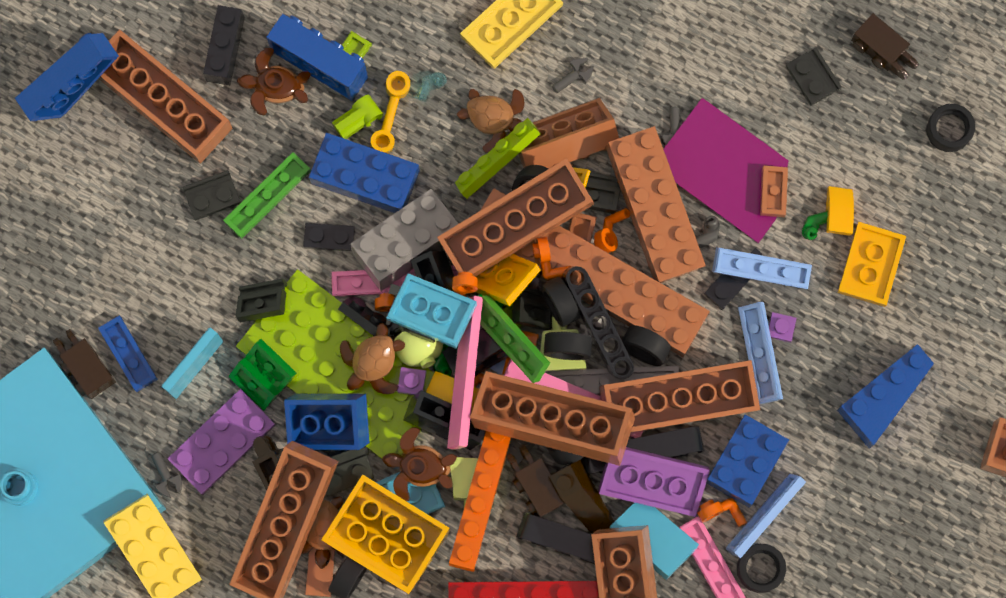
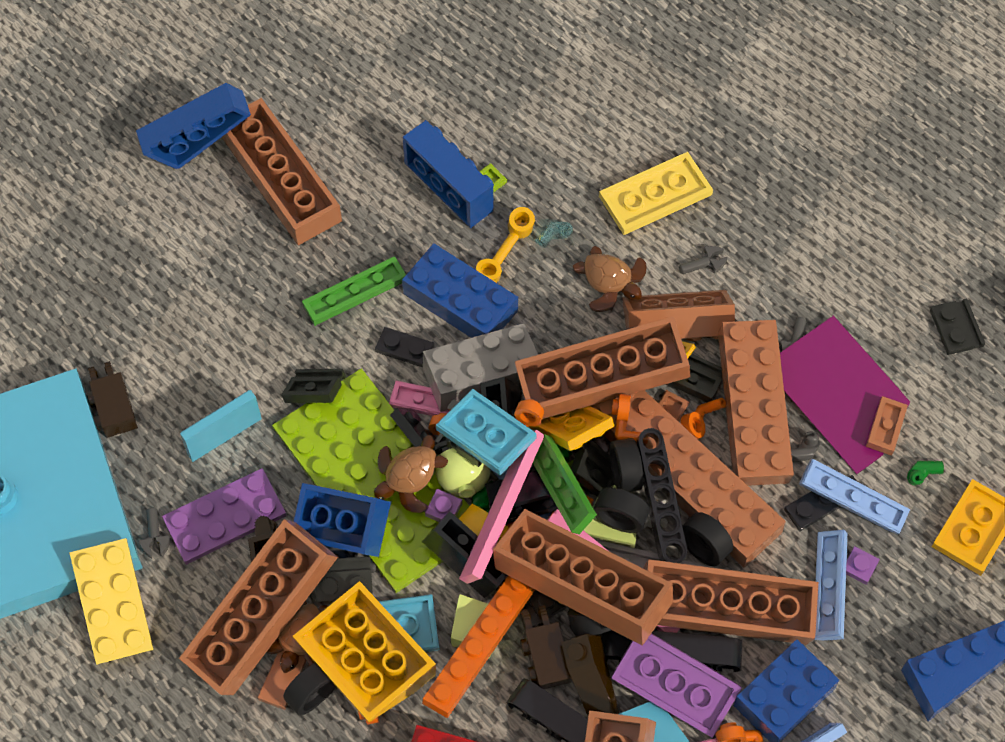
camera: 15 degrees right, 15 degrees down
(128, 353) = (159, 402): blue plate -> none
(211, 195) = (298, 276): pearl dark grey plate -> none
(224, 45) = (359, 142): black brick -> none
(262, 374) = (289, 459): green slope -> none
(273, 83) = (396, 188): reddish brown animal -> none
(361, 115) = (475, 241): lime piece -> none
(418, 465) = (424, 593): reddish brown animal -> none
(497, 158) = (609, 309): lime plate -> none
(840, 211) = (954, 464): yellow slope -> none

